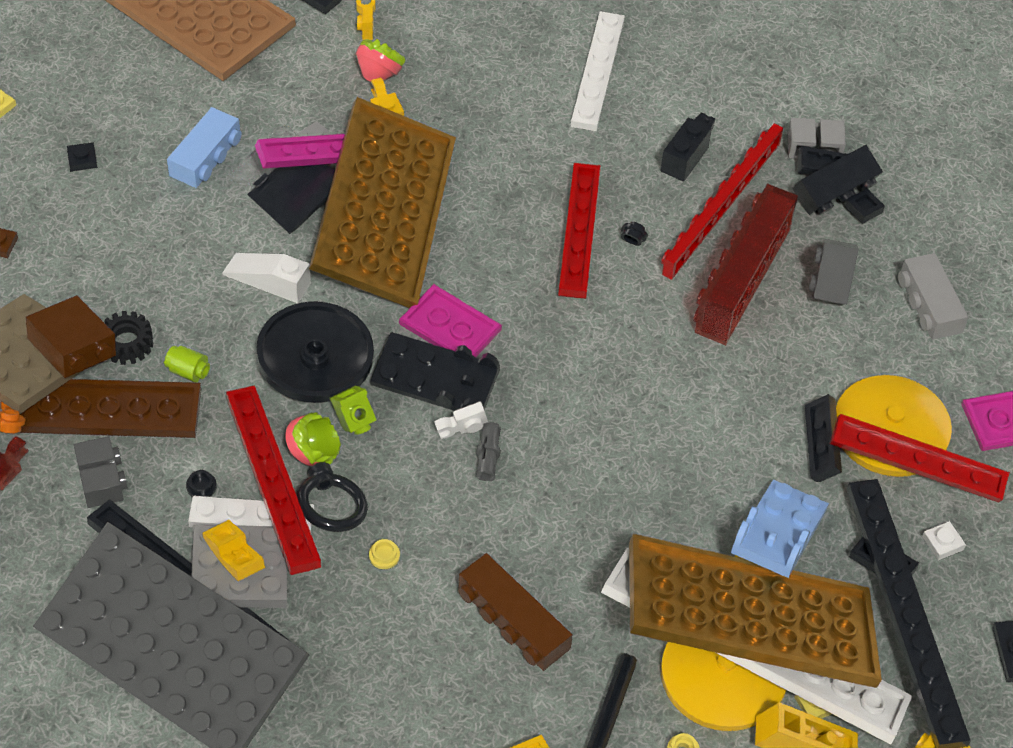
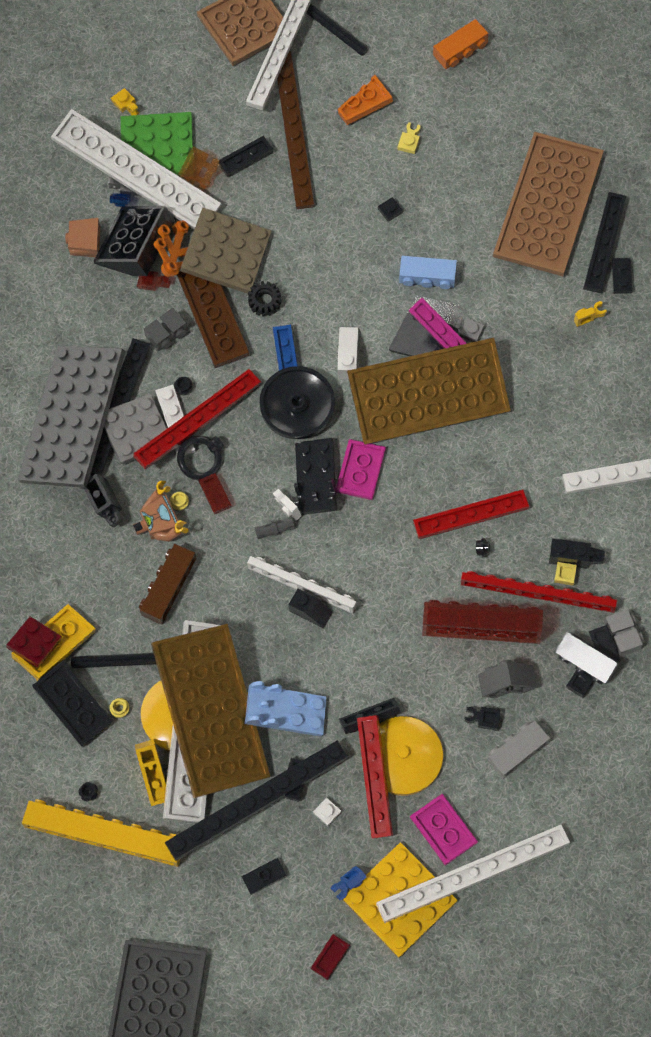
camera: 75 degrees right, 15 degrees up
(70, 336) = (238, 269): reddish brown brick -> none
(187, 363) = (261, 339): lime brick -> none
(220, 342) = (284, 346): none -> blue plate
(232, 550) = (136, 420): yellow slope -> none
(312, 439) = (233, 429): lime hair -> none
(339, 645) = (103, 500): none -> black hinge
(345, 406) = (265, 441): lime brick -> none
(378, 60) = (552, 337): coral hair -> none
(383, 99) = (521, 359): yellow plate -> none
(397, 504) = (214, 493): none -> clear red plate
(403, 583) = (159, 517): none -> nougat torso
(599, 442) = (295, 581): none -> white plate
(631, 452) = (309, 608): none -> black slope
(709, 166) = (565, 573): none -> light yellow plate
(873, 315) = (487, 717): none -> black plate

